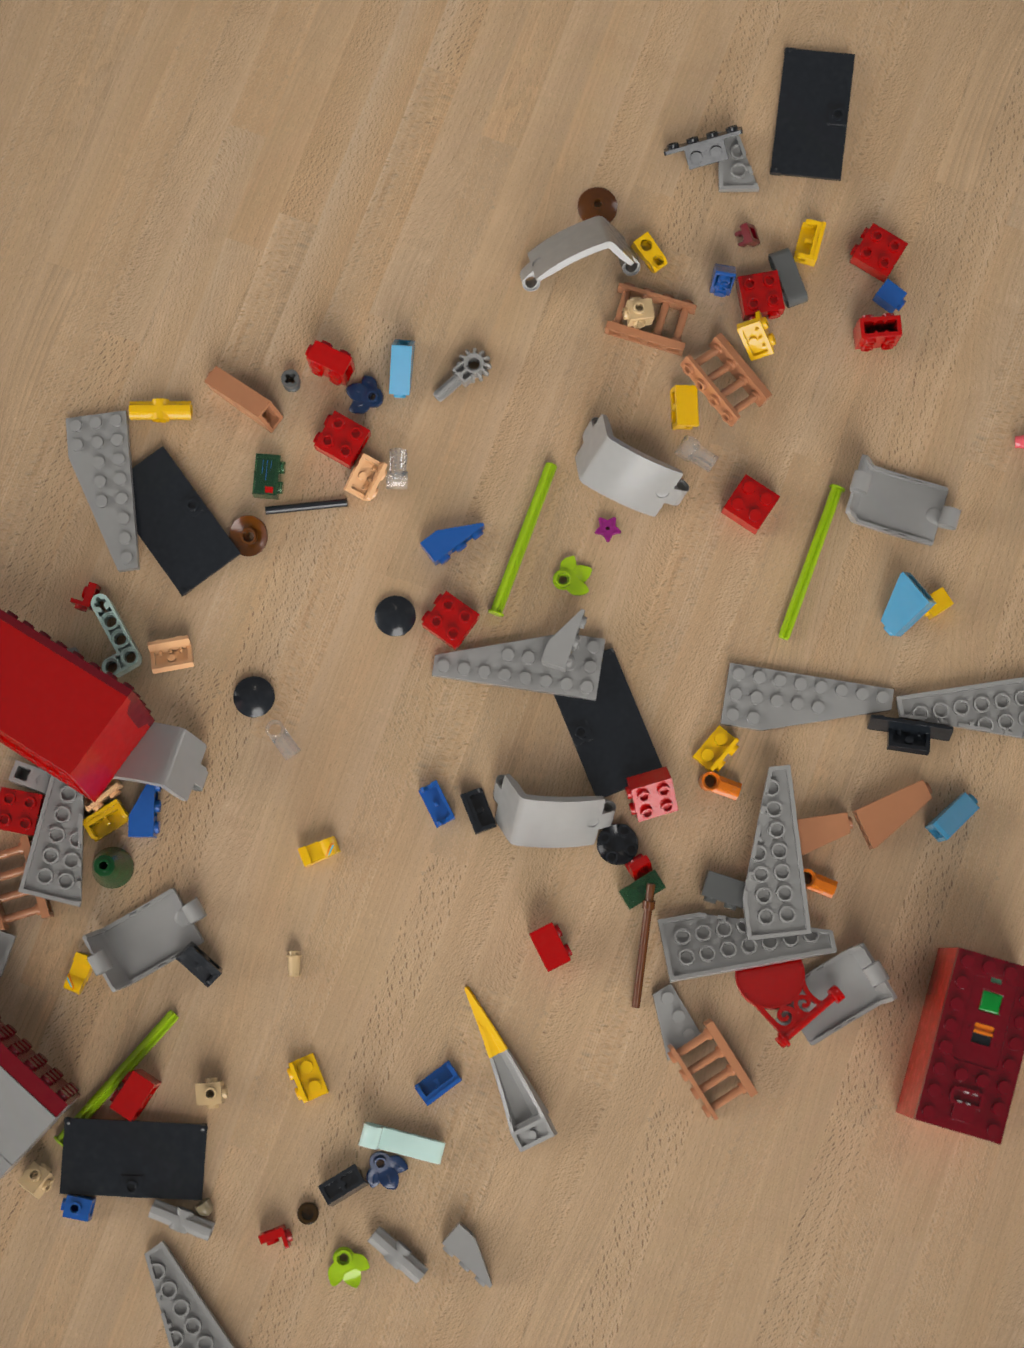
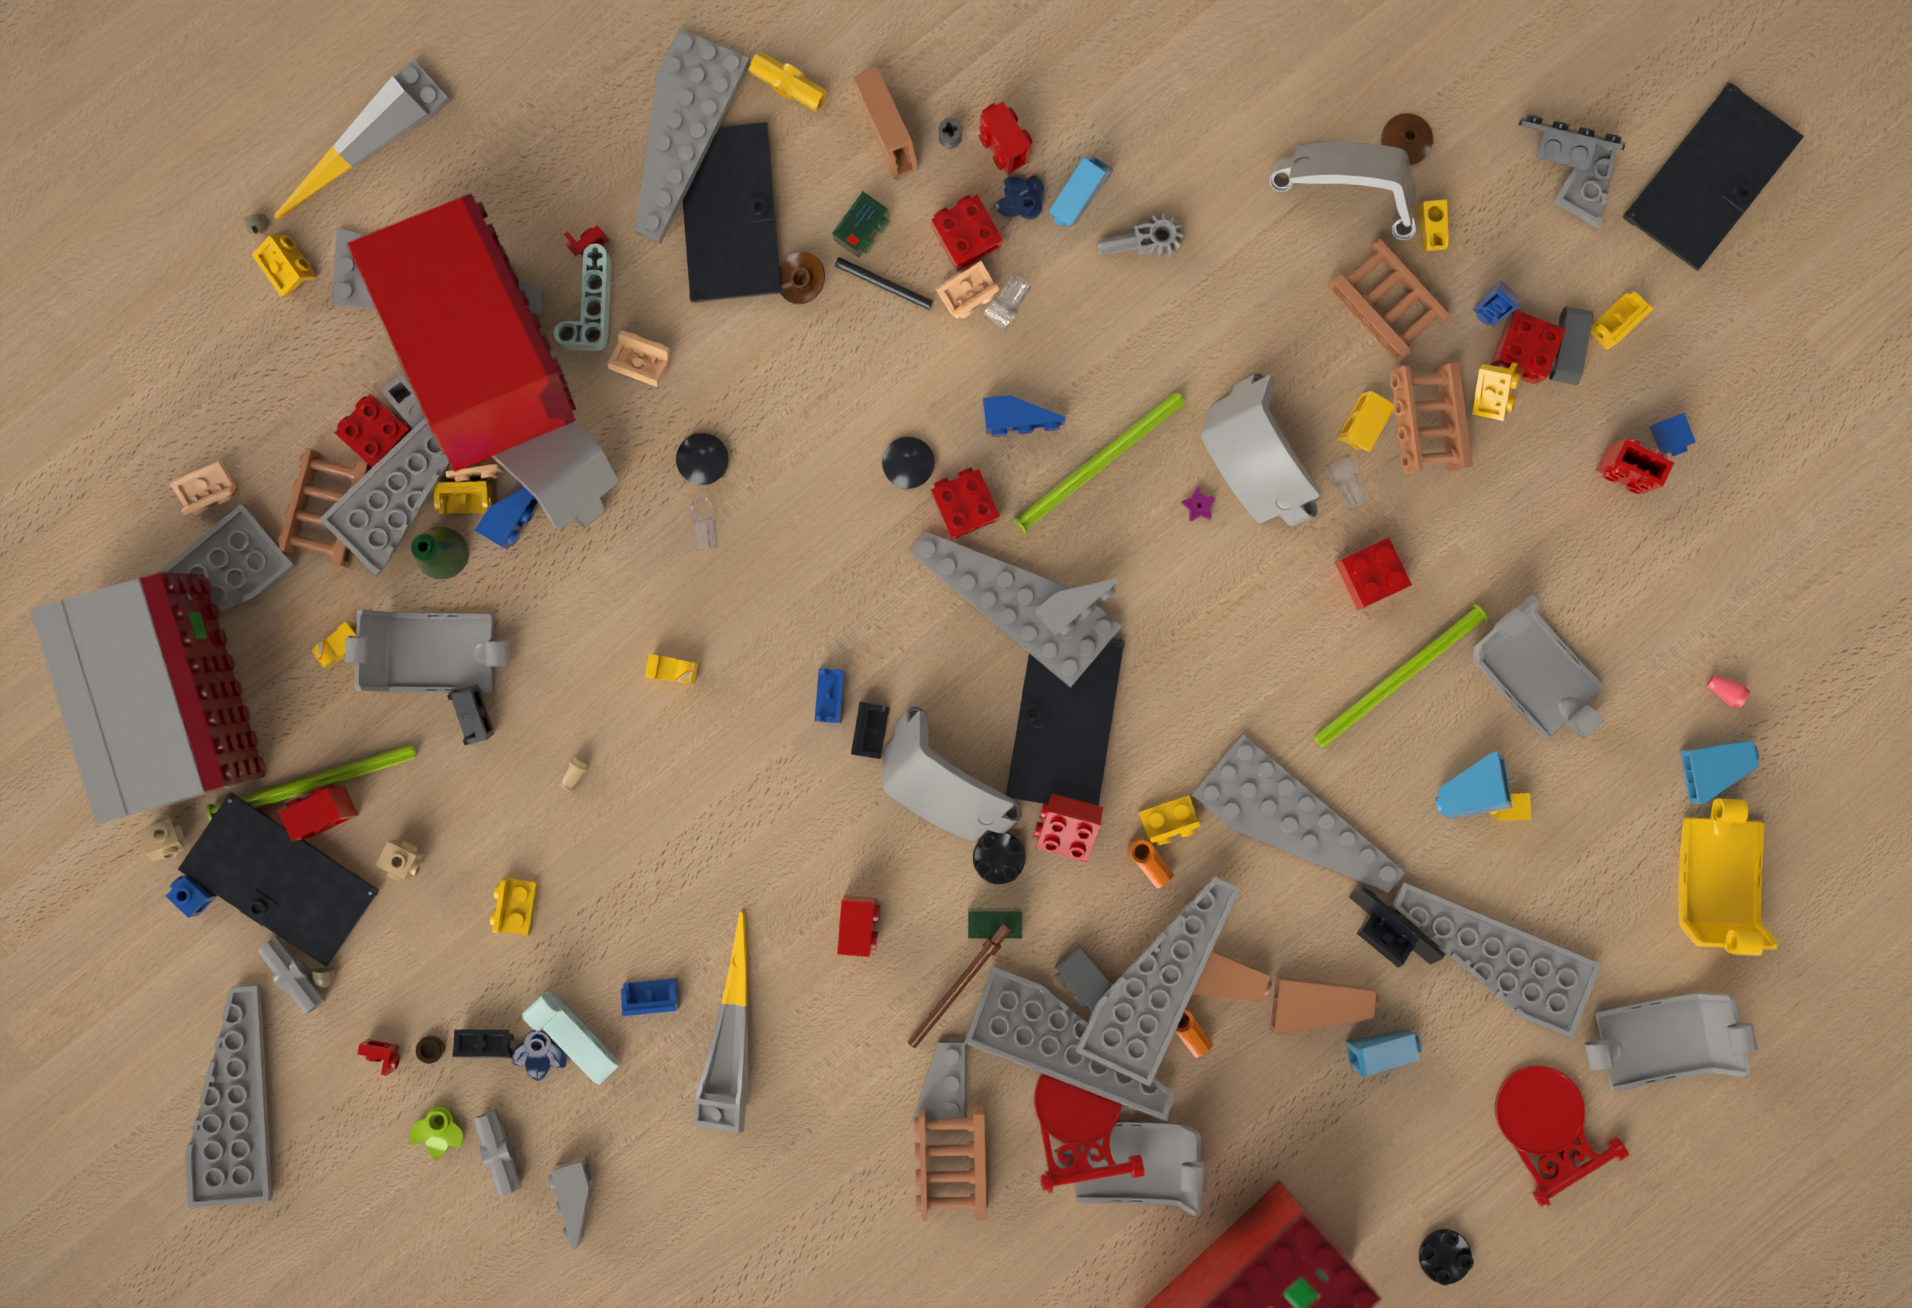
camera: 30 degrees right, 5 degrees up
(575, 576) = (1131, 536): lime plate -> none
(638, 312) = (1381, 285): tan brick -> none
(639, 866) = (1007, 896): red bracket -> none
(749, 235) = (1558, 271): dark red tile -> none
(877, 252) = (1690, 376): red brick -> none

